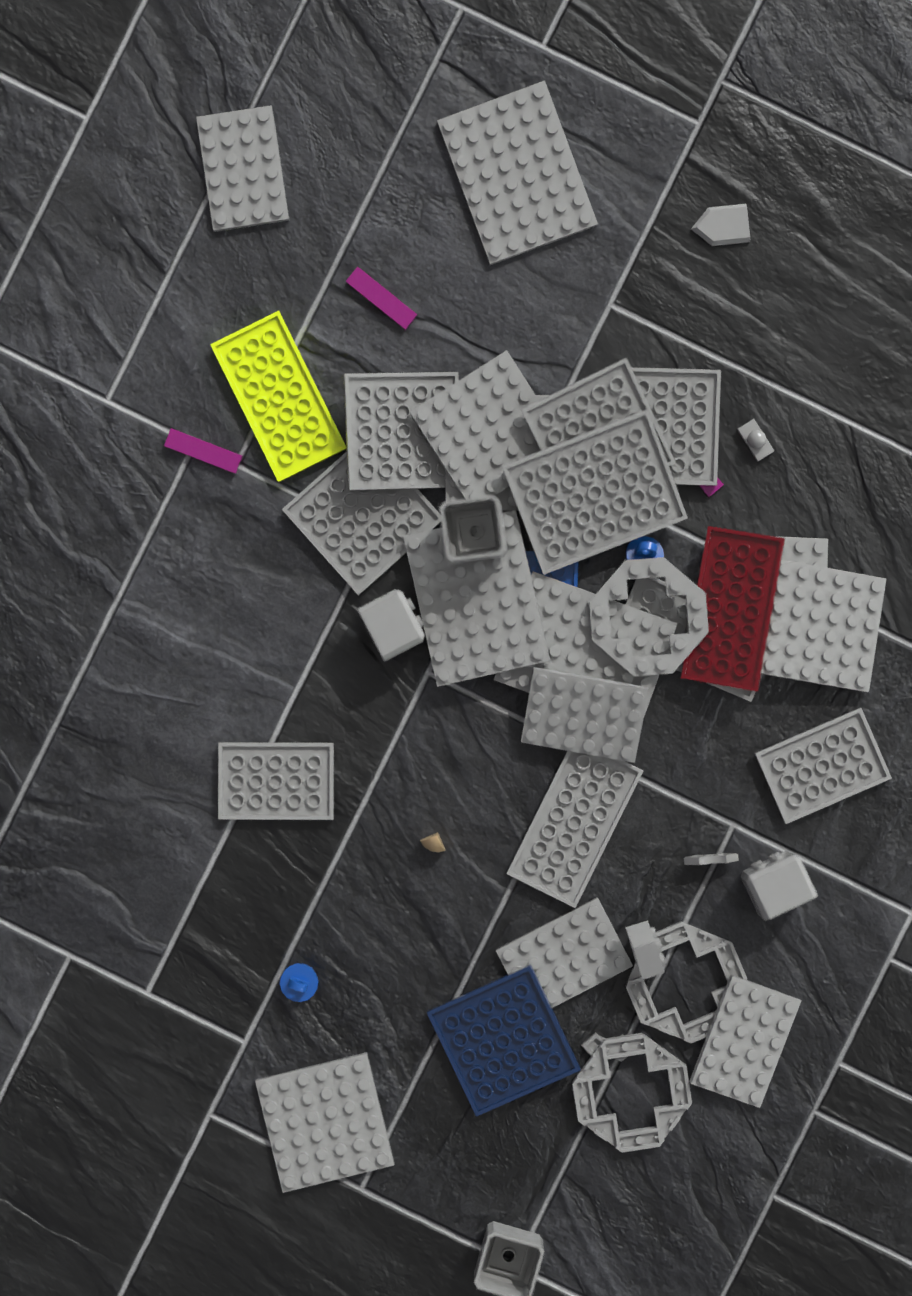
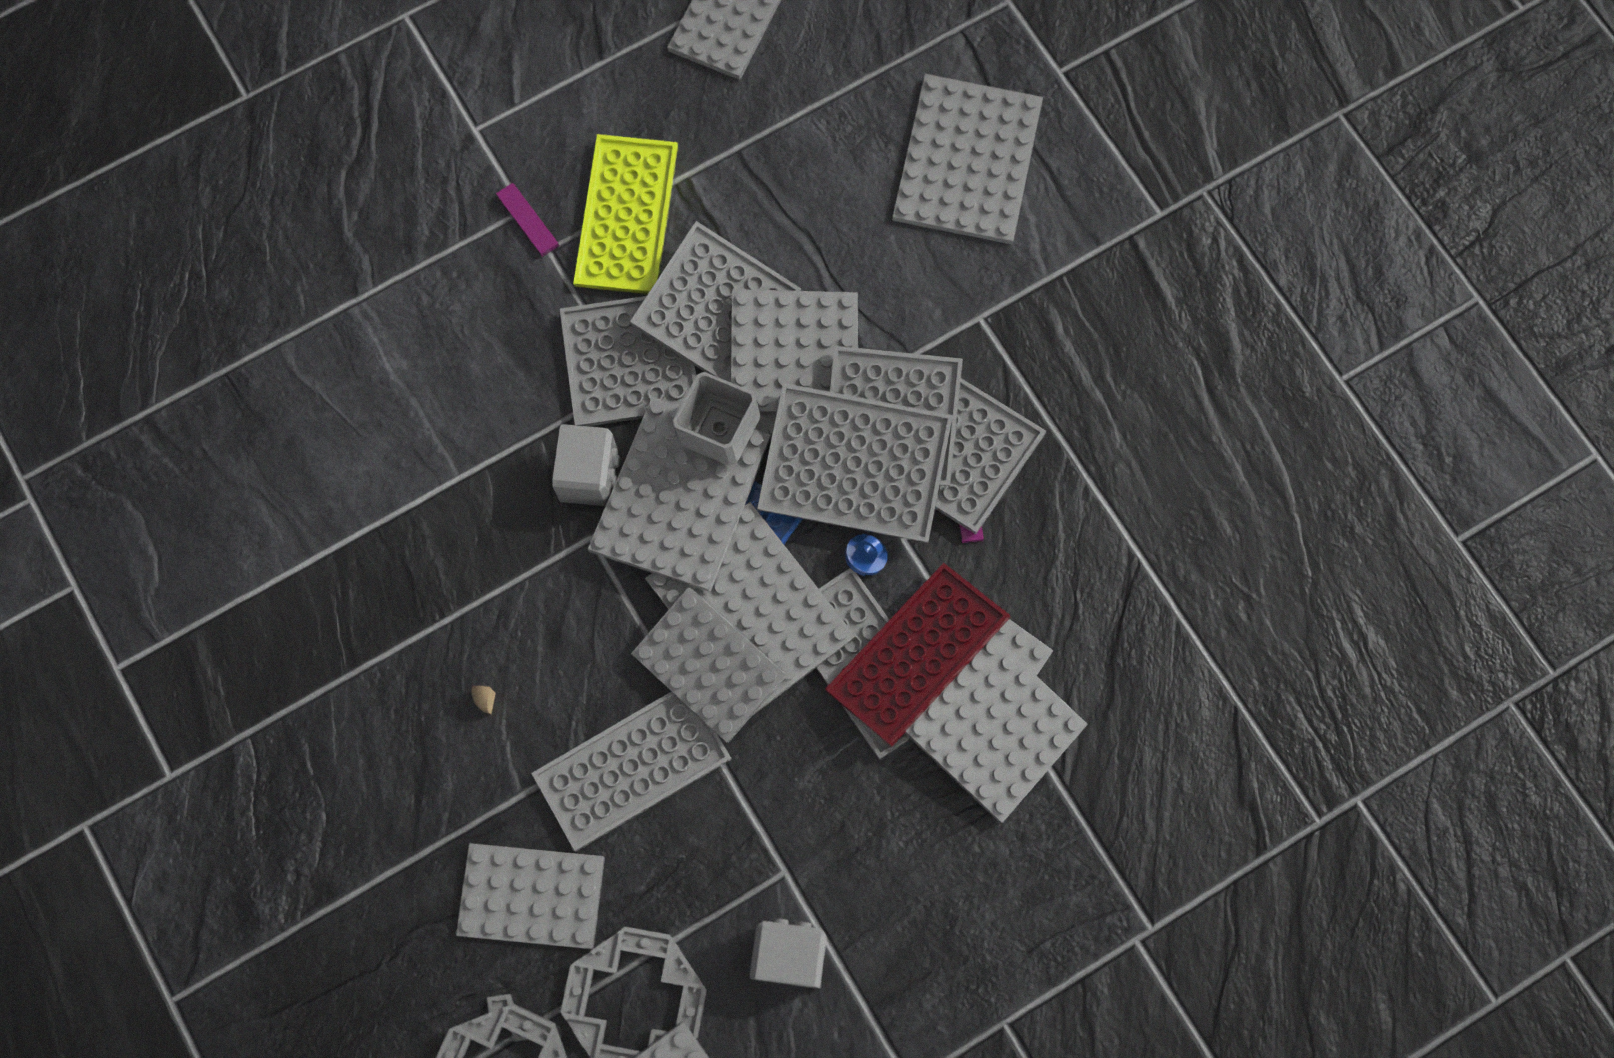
camera: 30 degrees right, 15 degrees down
(275, 781) = (379, 546): light grey plate -> none
(299, 982) = (262, 751): blue tile -> none
(324, 1122) = (185, 908): light grey plate -> none
(381, 298) = (775, 188): magenta tile -> none
(503, 1040) = (413, 939): dark blue plate -> none
(646, 949) = (612, 933): light grey brick -> none
(680, 644) = (817, 564): light grey plate -> none
(711, 858) = (740, 888): light grey tile -> none
(724, 225) = (1129, 312): light grey tile -> none
(755, 440) = (1040, 517): light grey tile -> none
(823, 765) = (911, 869): light grey plate -> none

